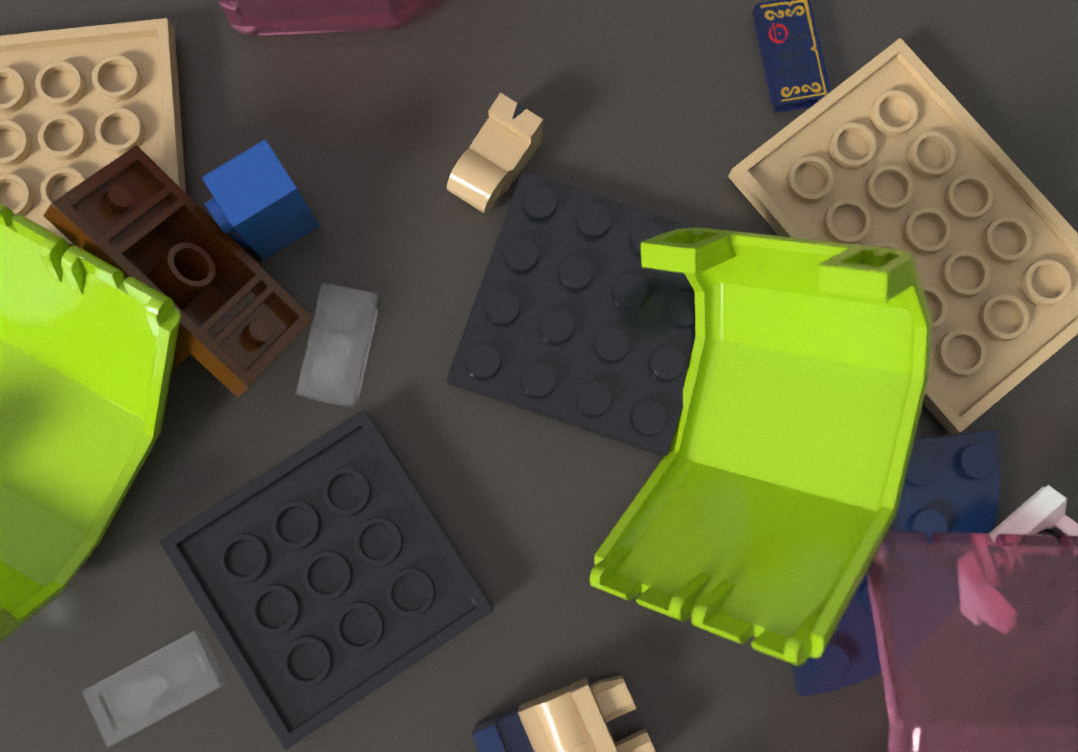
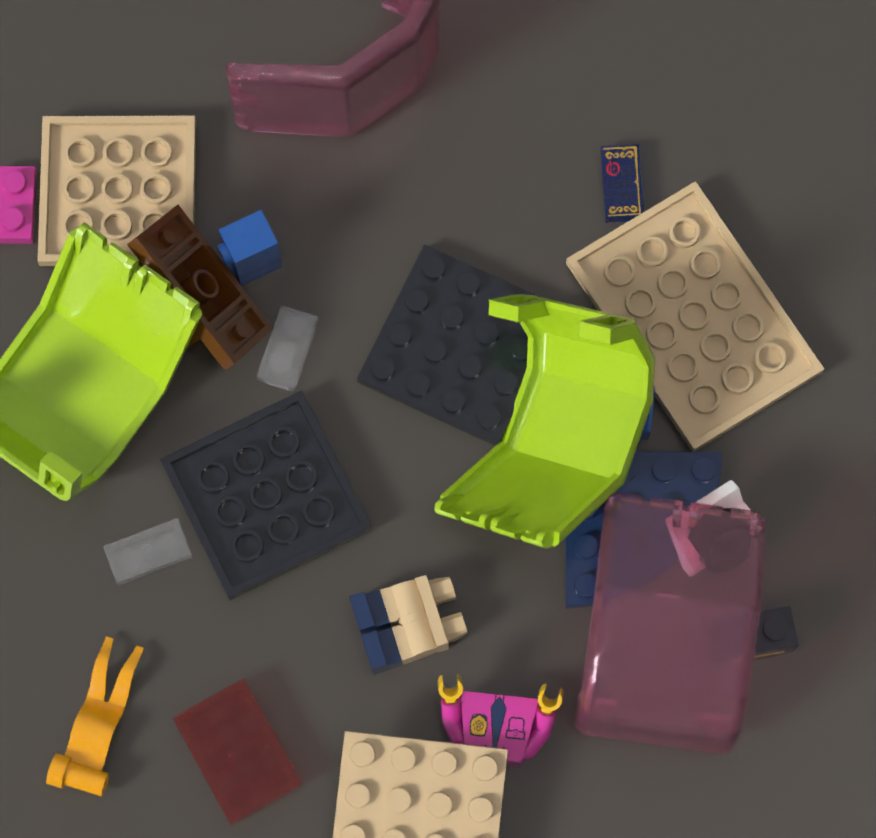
camera: 10 degrees right, 5 degrees down
(496, 154) = (408, 232): tan leg -> none

